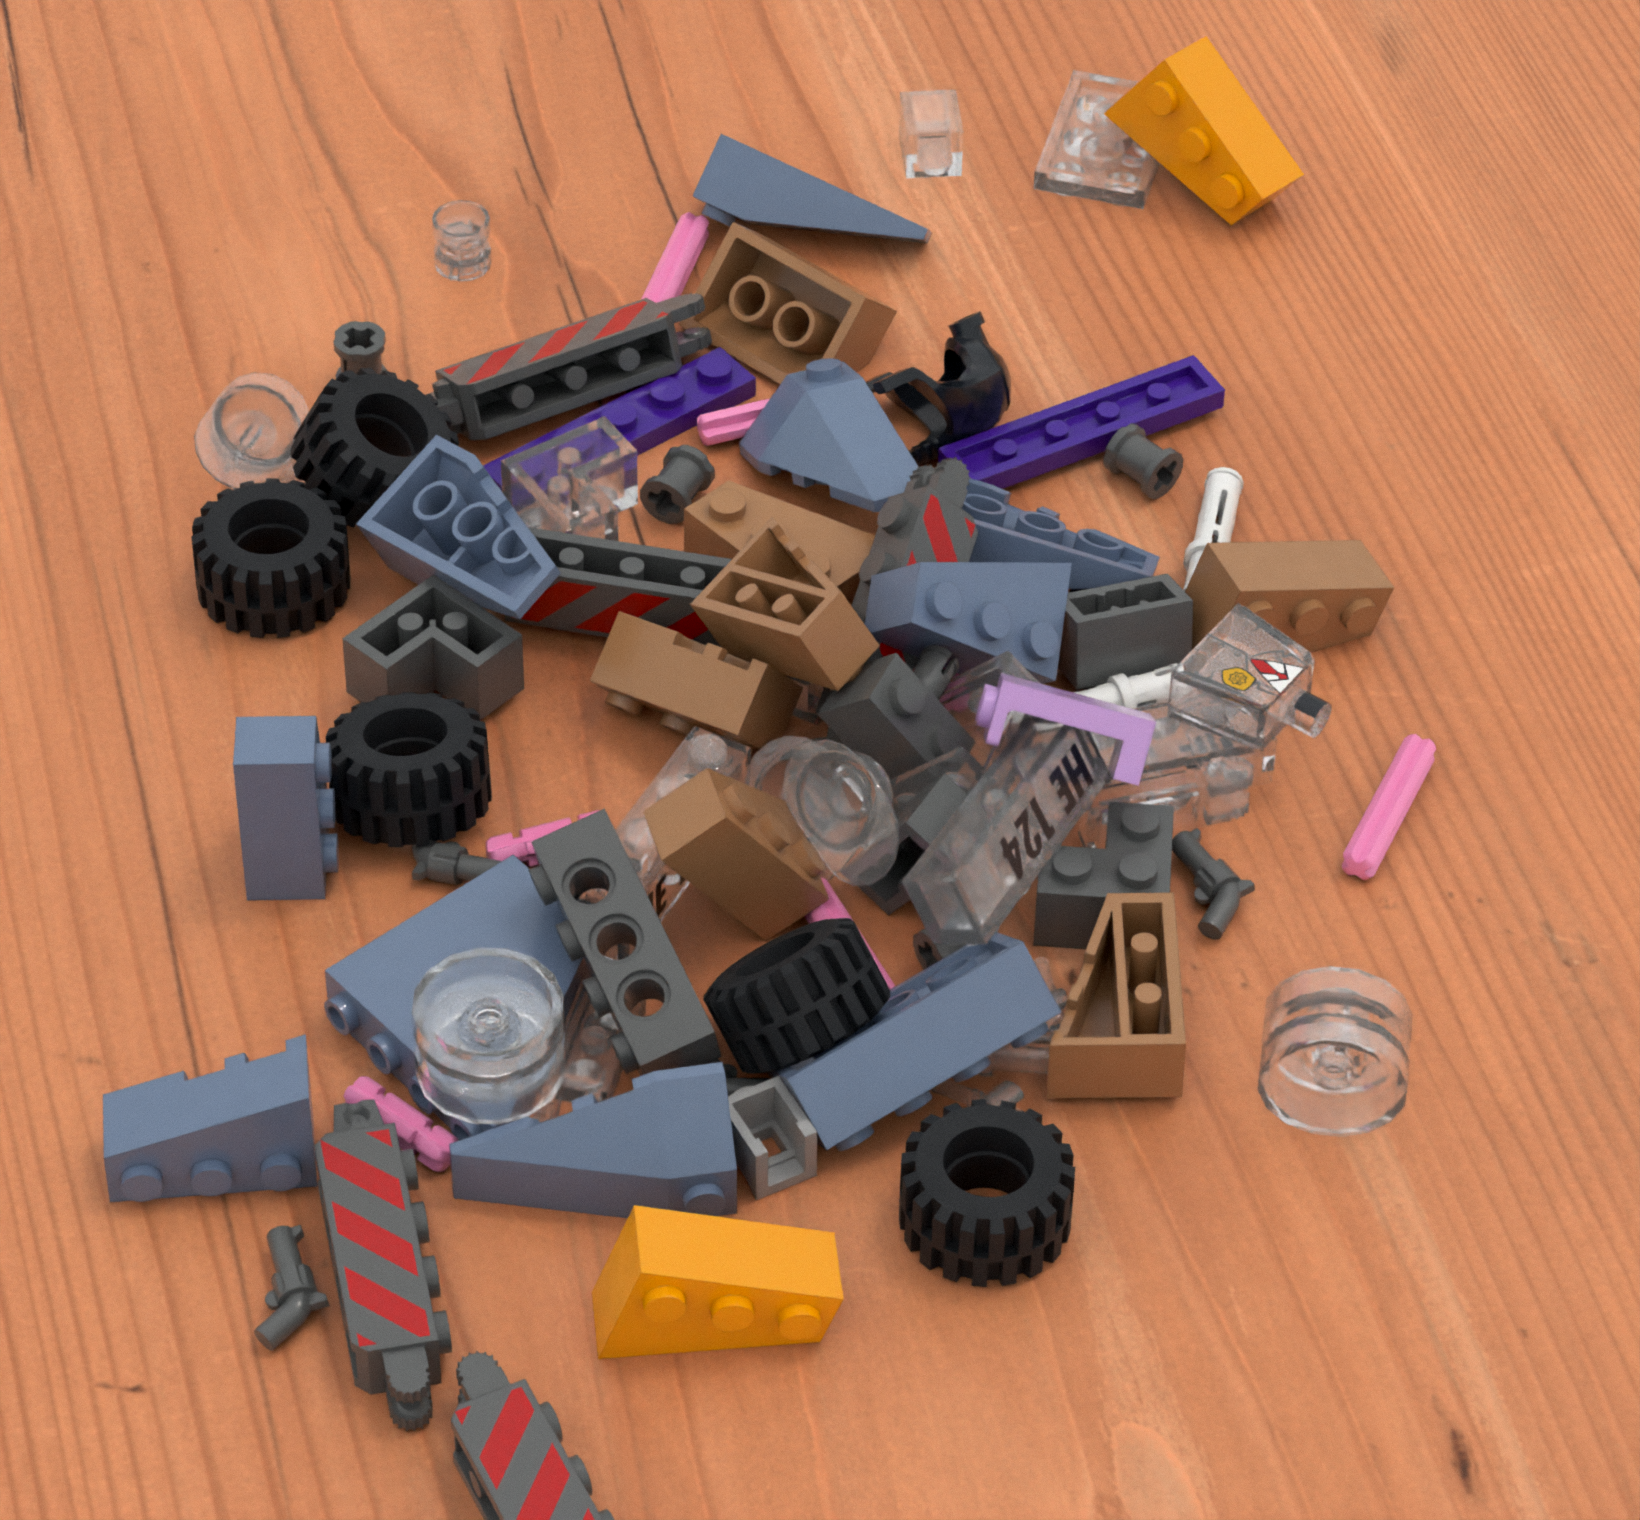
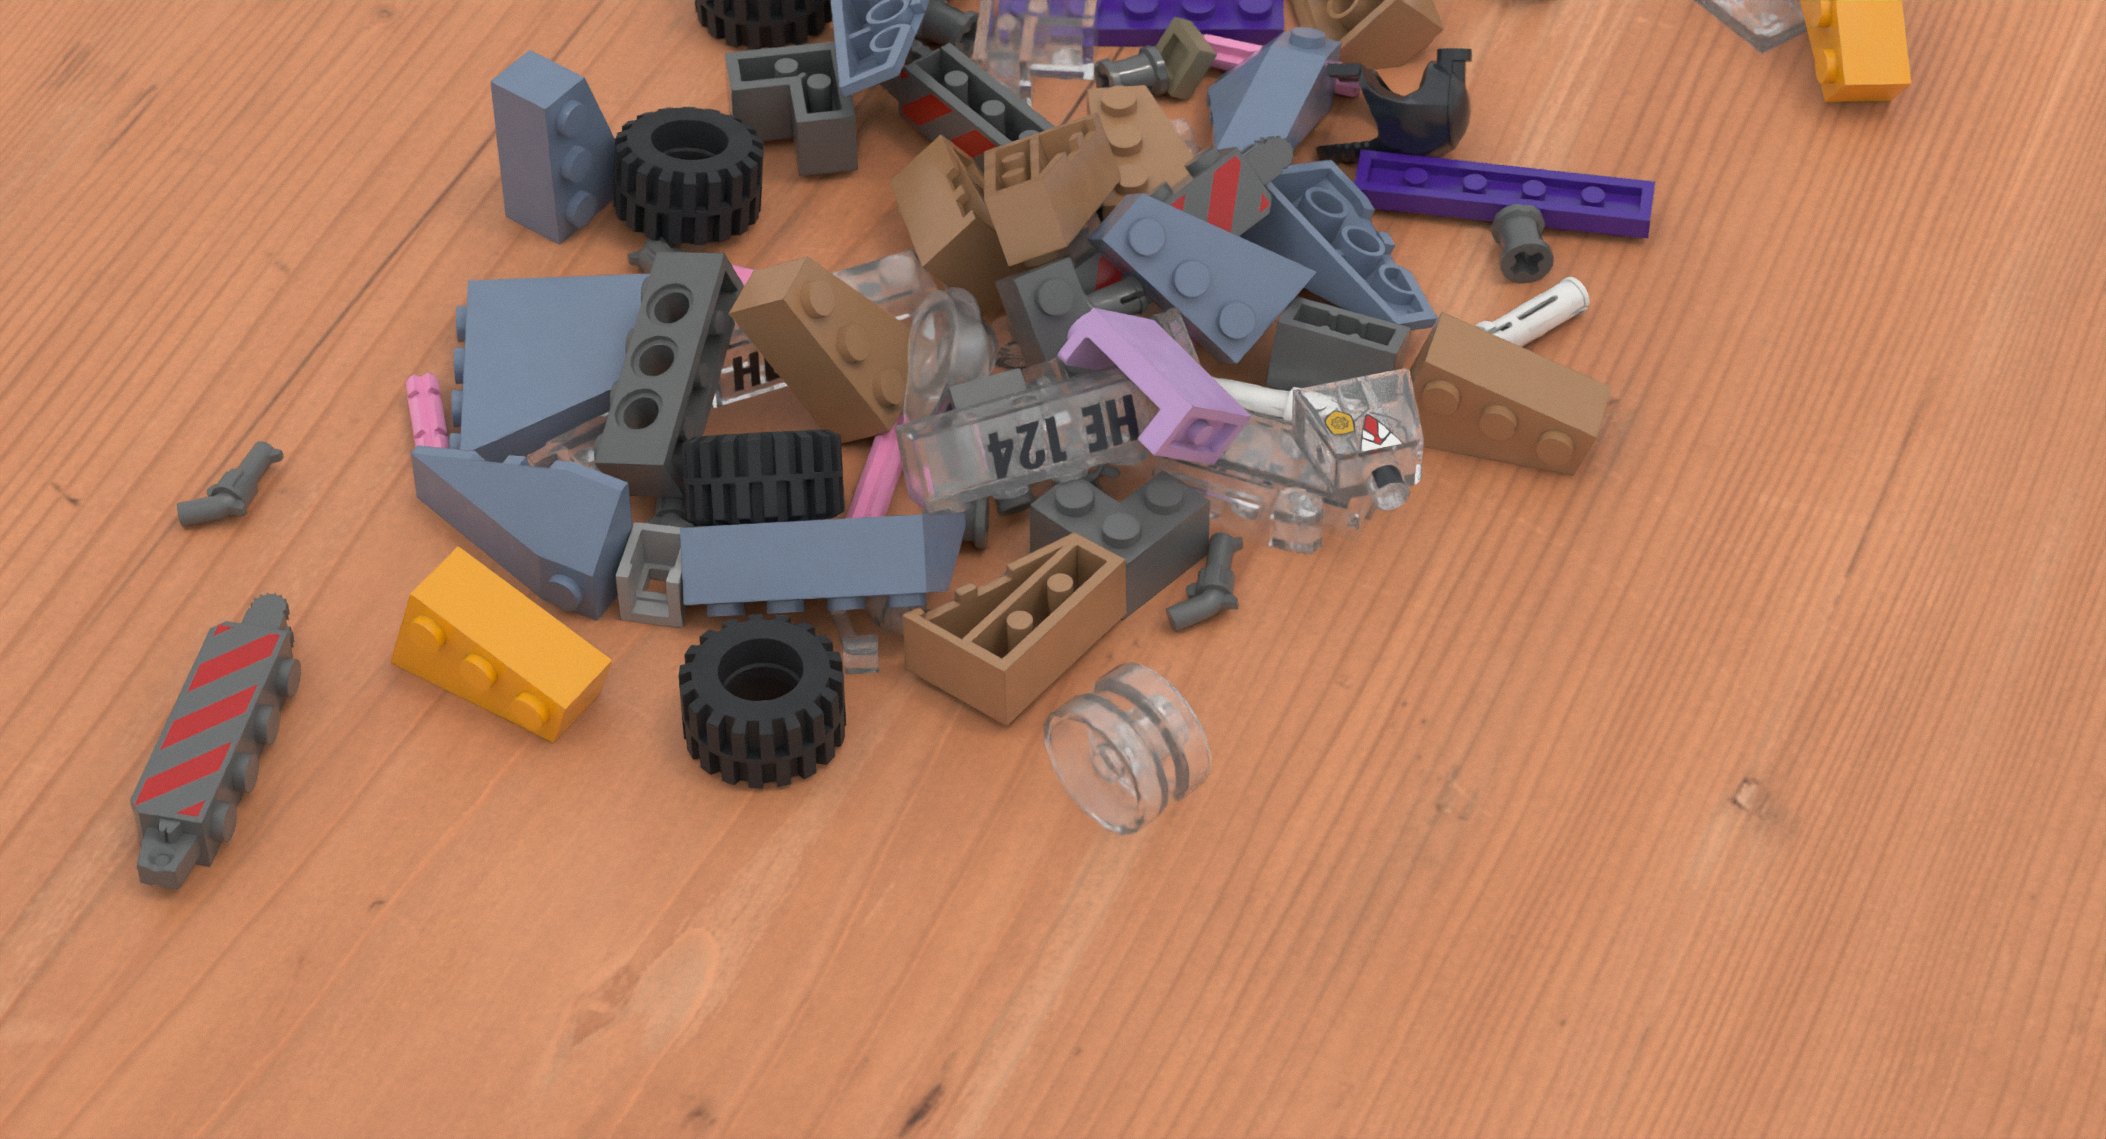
camera: 40 degrees right, 0 degrees up
(213, 1132) = (288, 353): sand blue wedge -> none
(379, 1262) = (303, 499): dark grey hinge -> none
(489, 1035) = (496, 376): clear wheel -> none
(710, 435) = (1185, 57): none -> dark tan plate
(1388, 807) = (1421, 607): bright pink axle -> none

